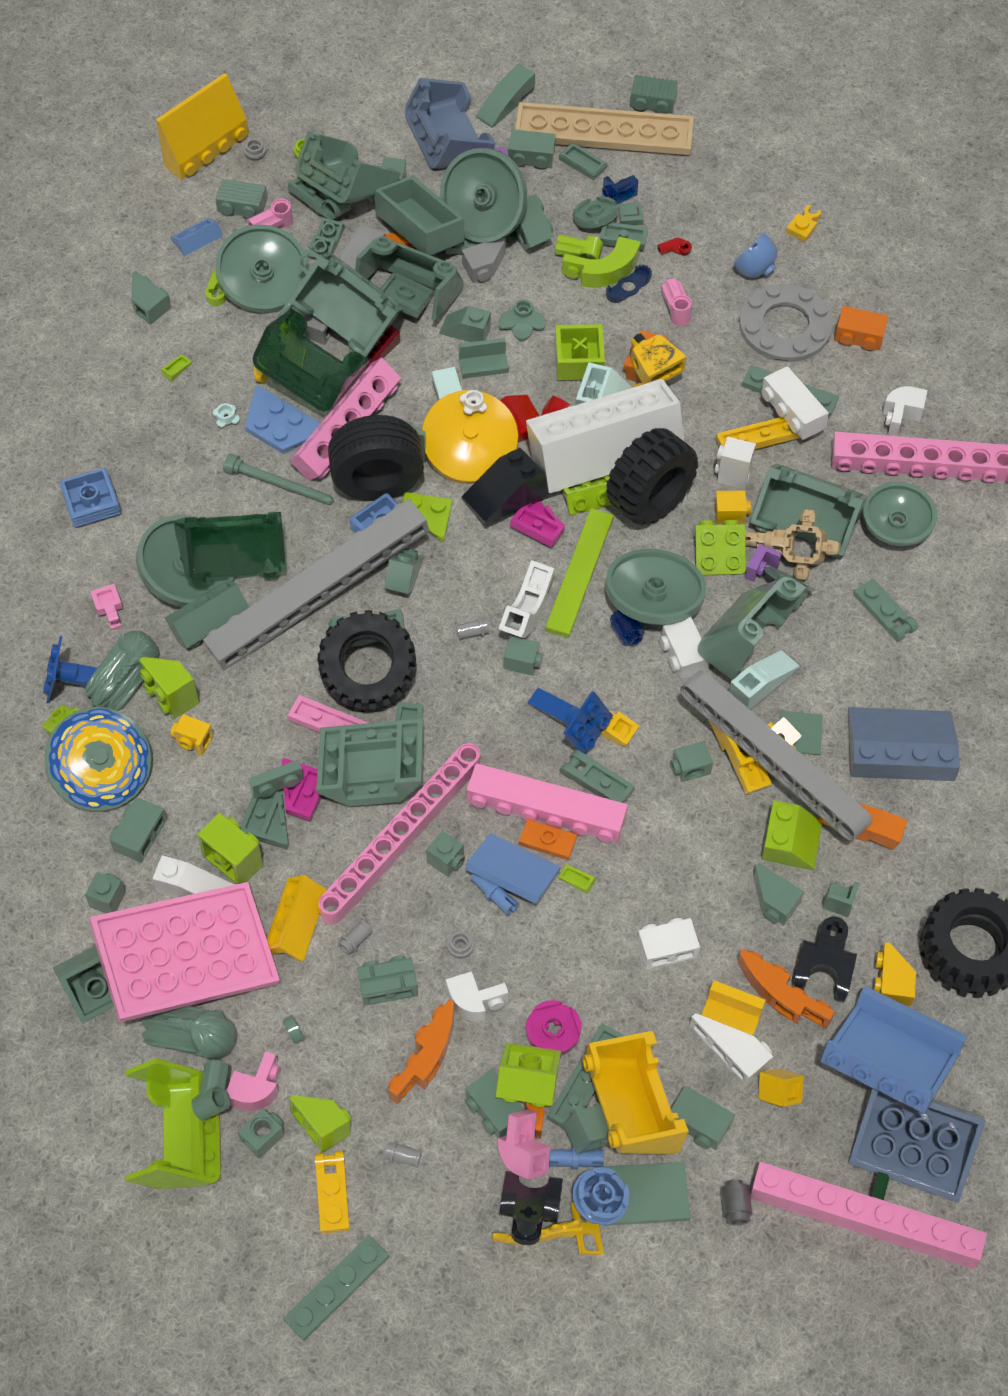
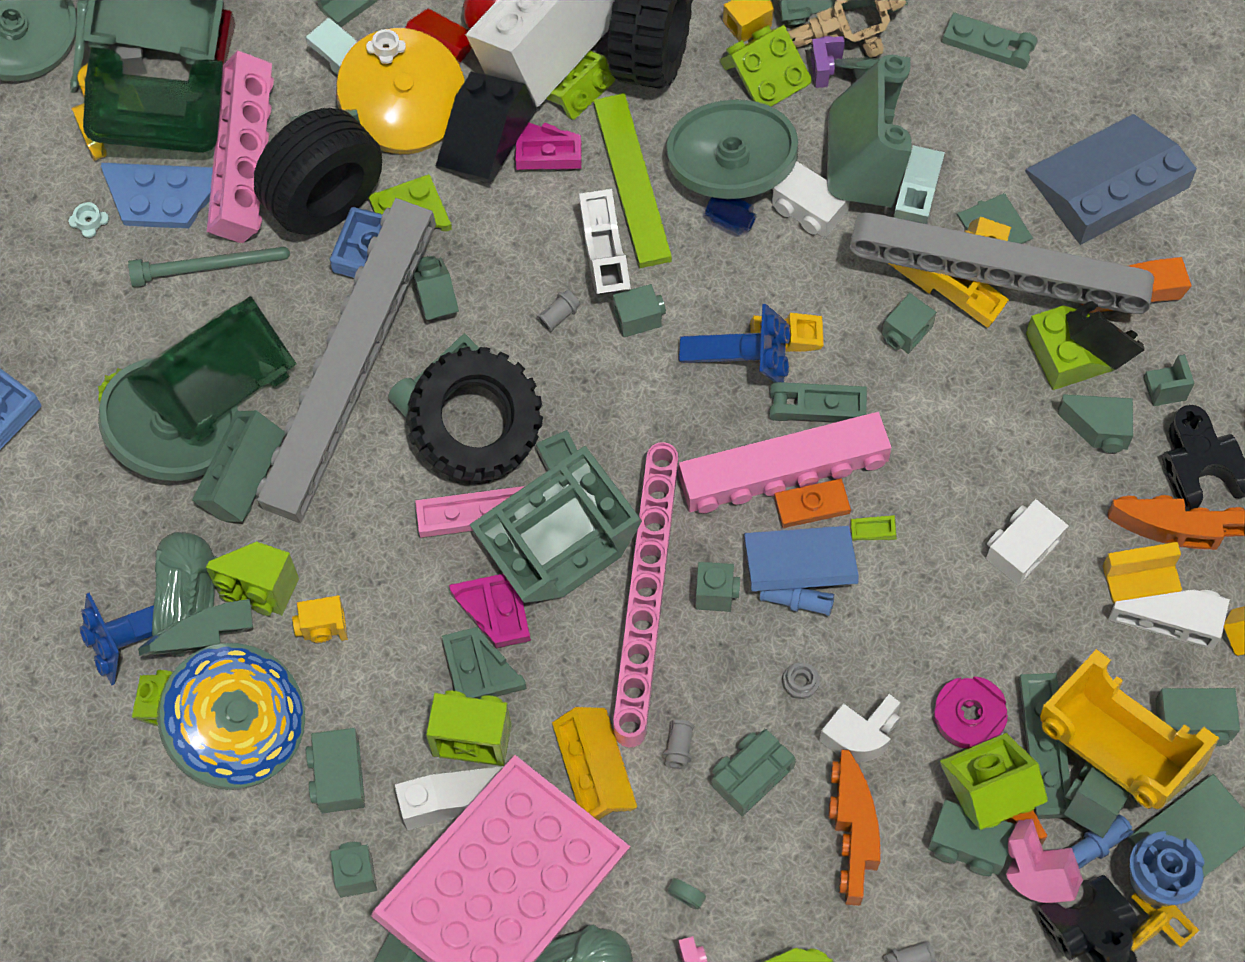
camera: 30 degrees left, 5 degrees up
(107, 602) = (104, 521): bright pink plate -> none
(114, 696) = (200, 629): none -> sand green slope
(276, 779) = (457, 625): sand green plate -> none
(810, 841) = (1102, 336): none -> pearl dark grey hinge

